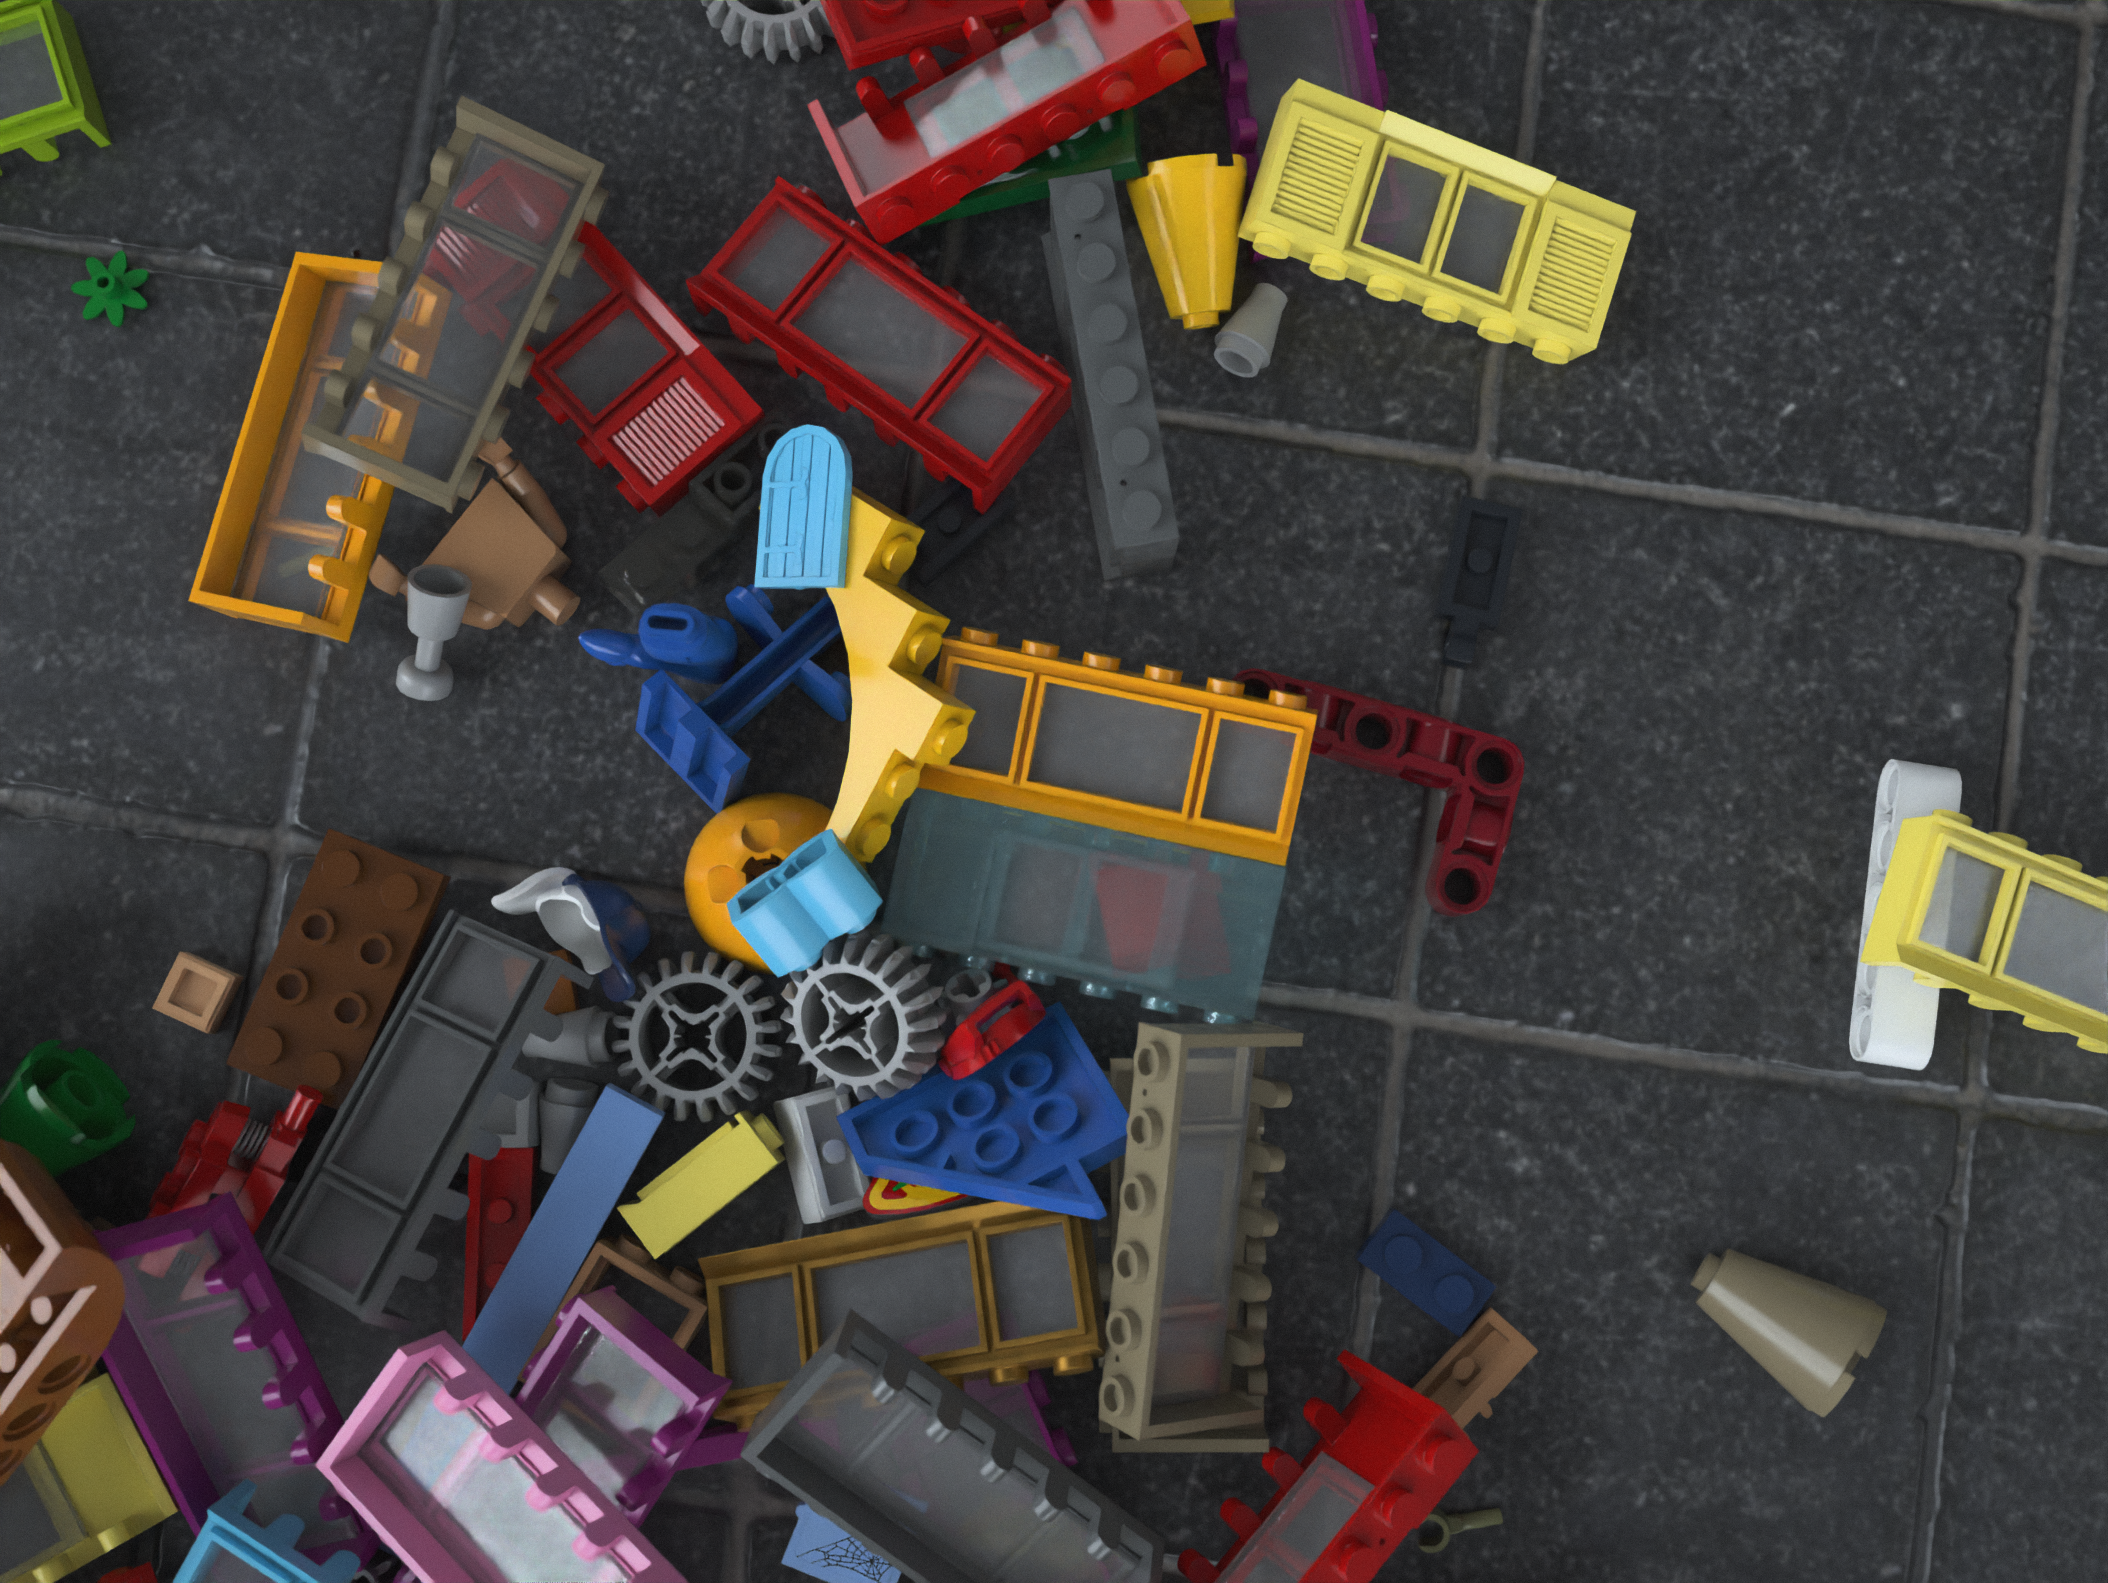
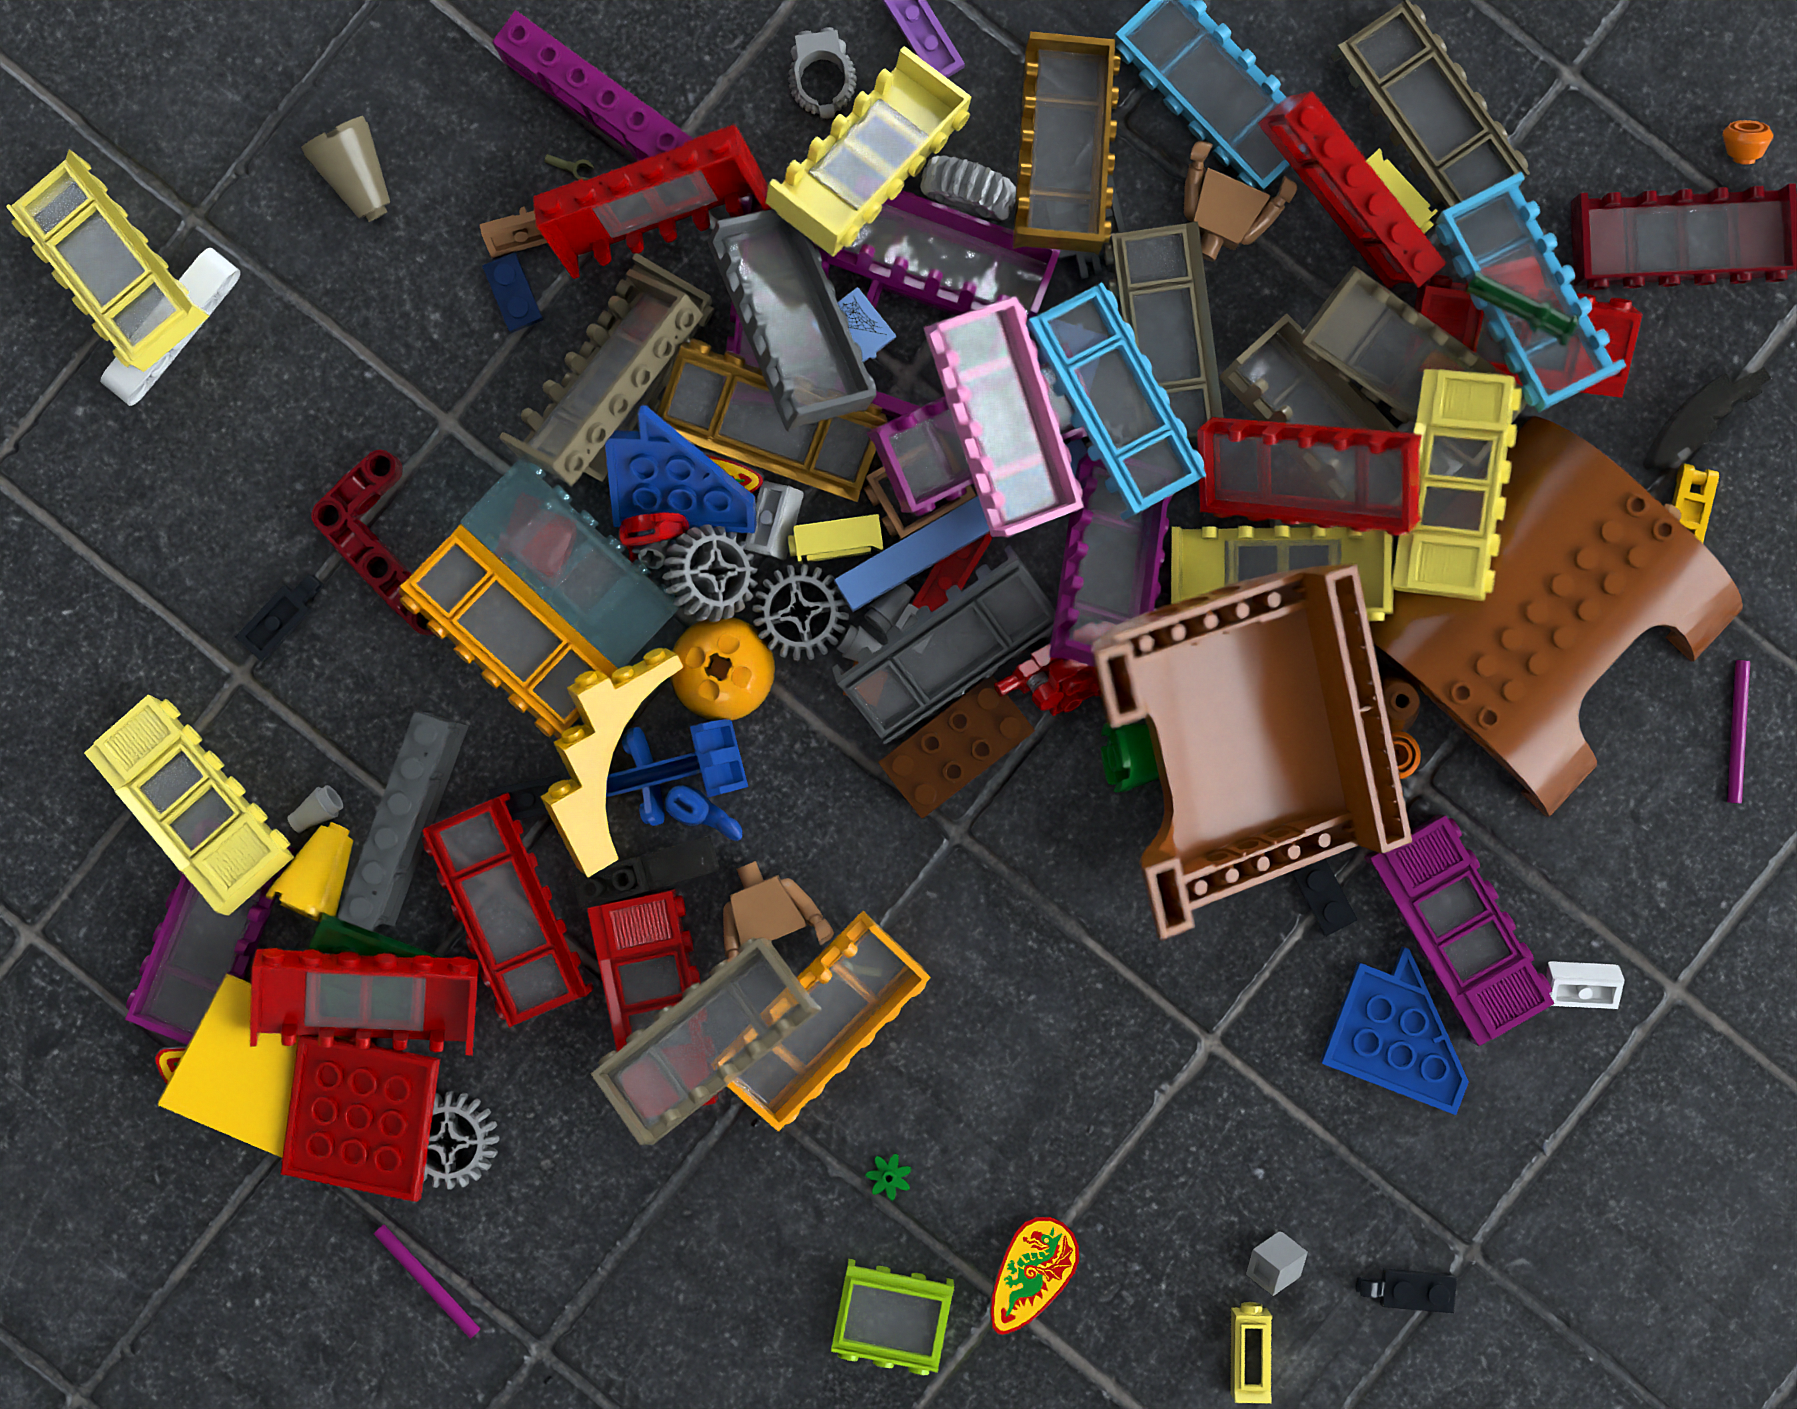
camera: 150 degrees left, 5 degrees up
(197, 992) = (1038, 779): light nougat tile -> none
(434, 614) = (808, 896): light grey piece -> none
(589, 919) = (821, 699): hair -> none
(805, 511) = (594, 839): medium azure window -> none
(805, 904) = (703, 640): medium azure brick -> none

